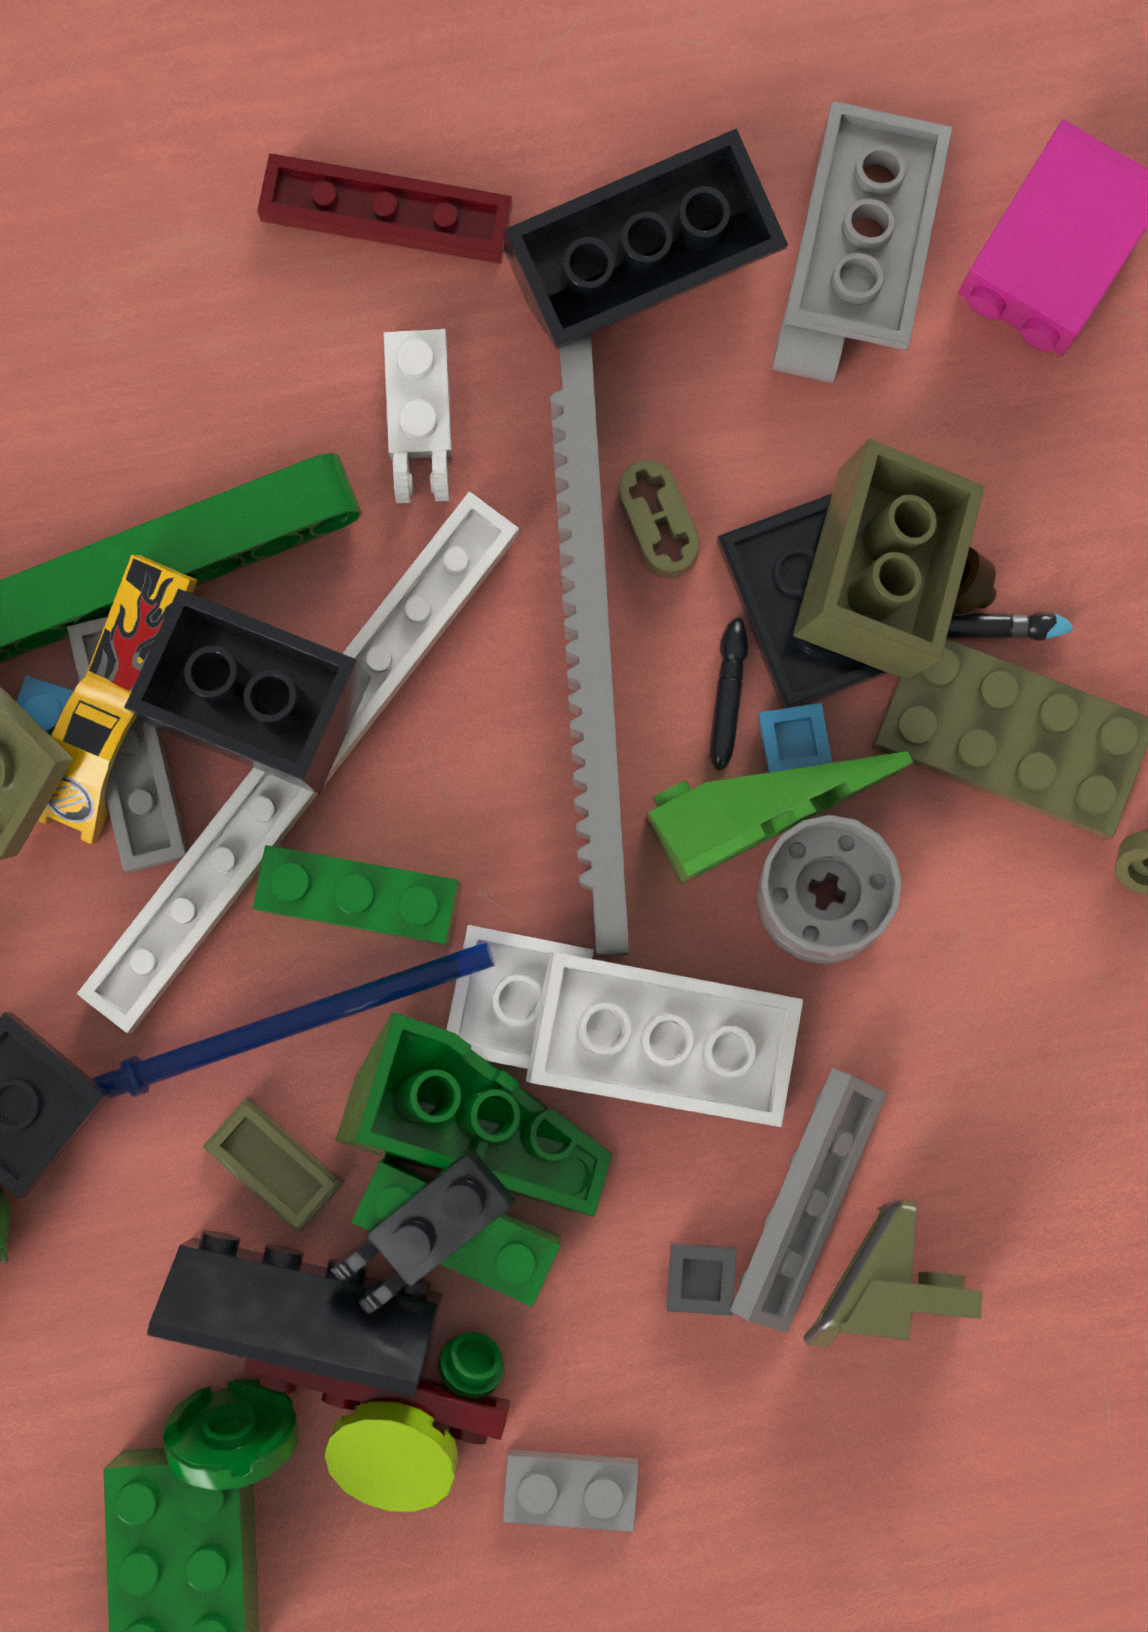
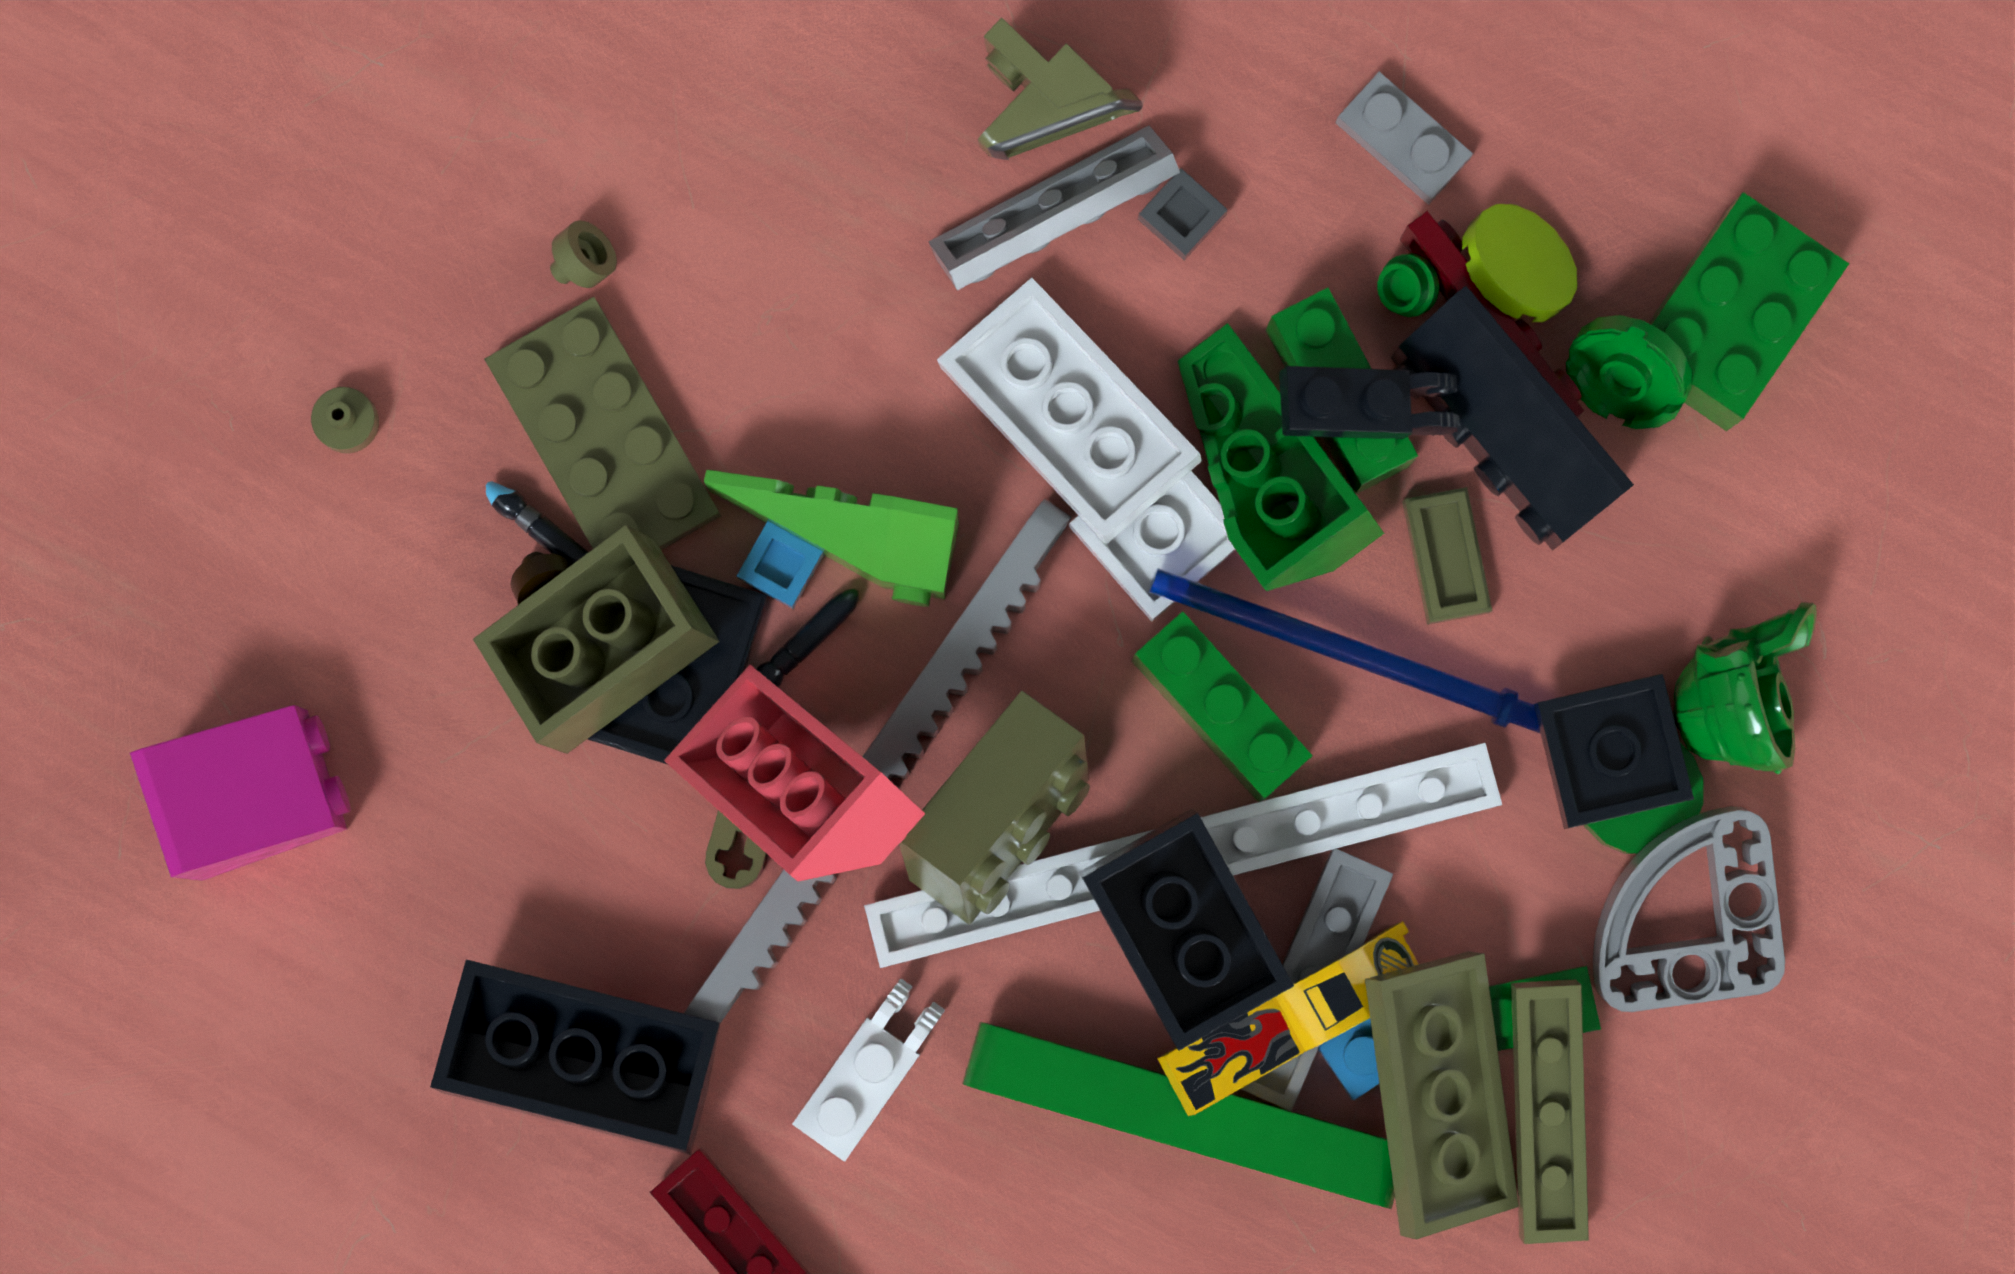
camera: 145 degrees left, 0 degrees up
(470, 669) = (997, 809): none -> olive brick
(642, 556) = (792, 782): none -> coral slope
(854, 281) = (436, 893): light grey hinge -> none
(863, 879) = (816, 416): light grey wheel -> none

